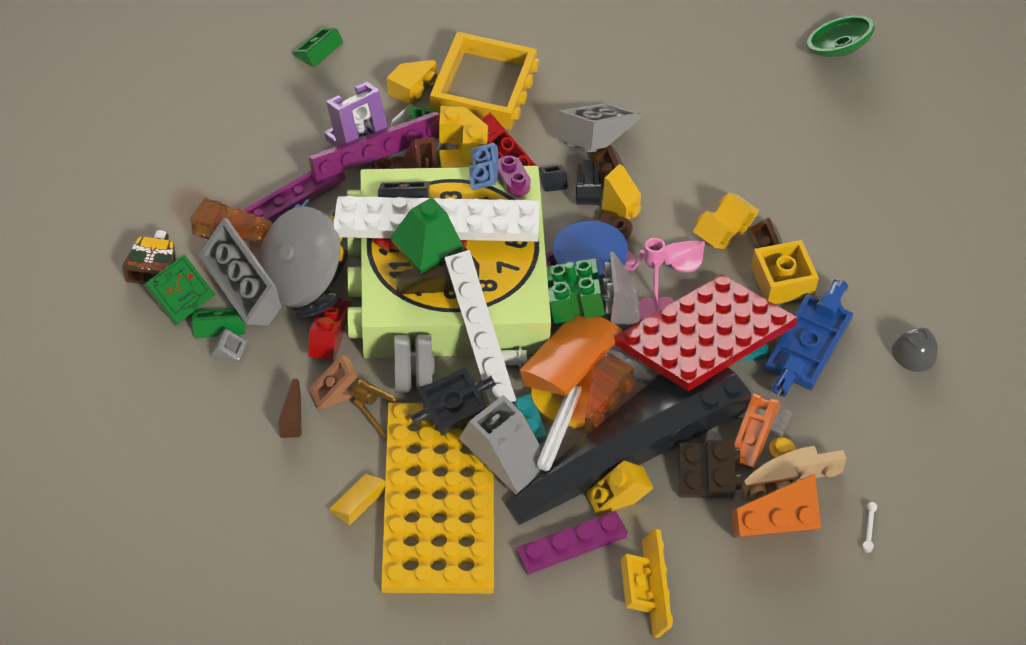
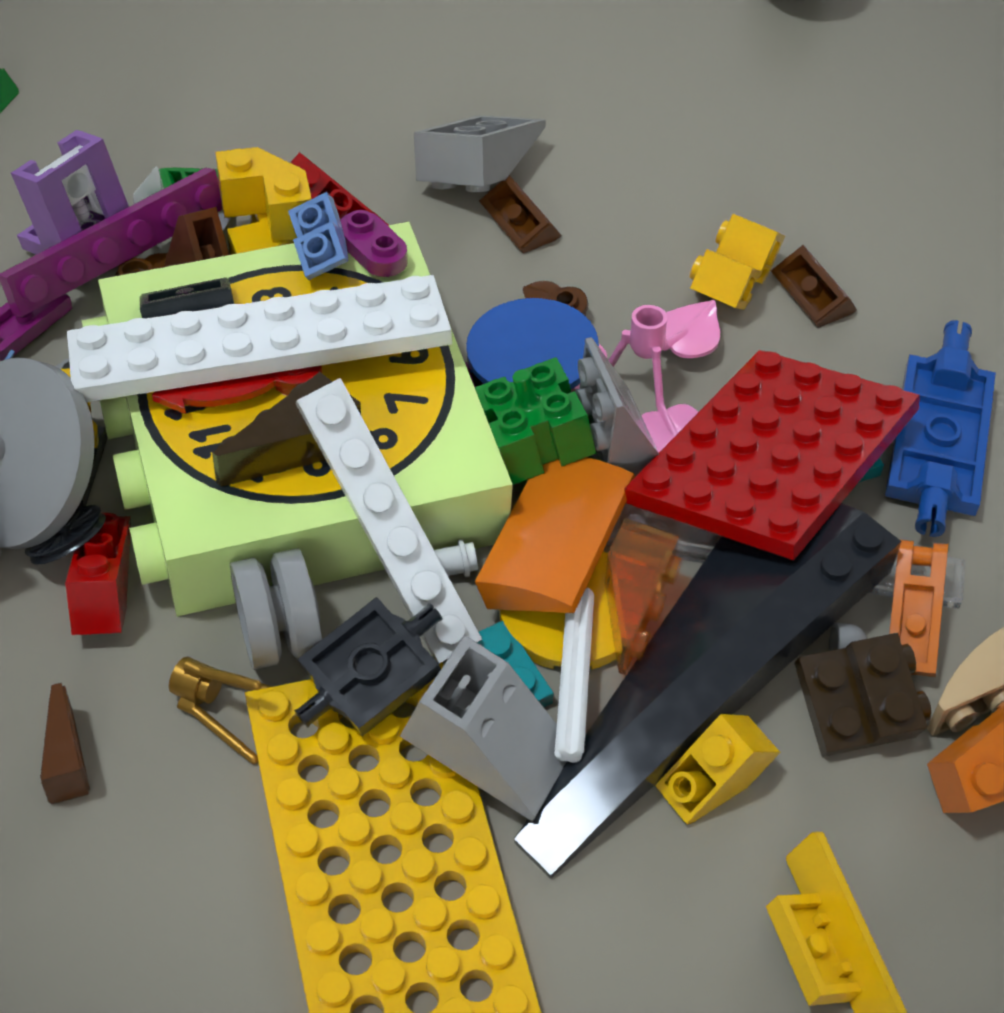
camera: 15 degrees left, 0 degrees up
(334, 384) = (133, 677): nougat slope -> none
(358, 498) = (230, 896): yellow slope -> none
(411, 80) = (149, 129): yellow slope -> none
(426, 235) = (252, 367): green slope -> none
(494, 50) = (273, 63): yellow window -> none
(553, 178) = (435, 243): black slope -> none
(571, 542) = (658, 893): magenta plate -> none
(588, 186) = (492, 250): black piece -> none
(621, 194) = (555, 248): yellow slope -> none
(780, 446) = (967, 629): yellow plate -> none
(784, 272) = (863, 326): yellow brick -> none

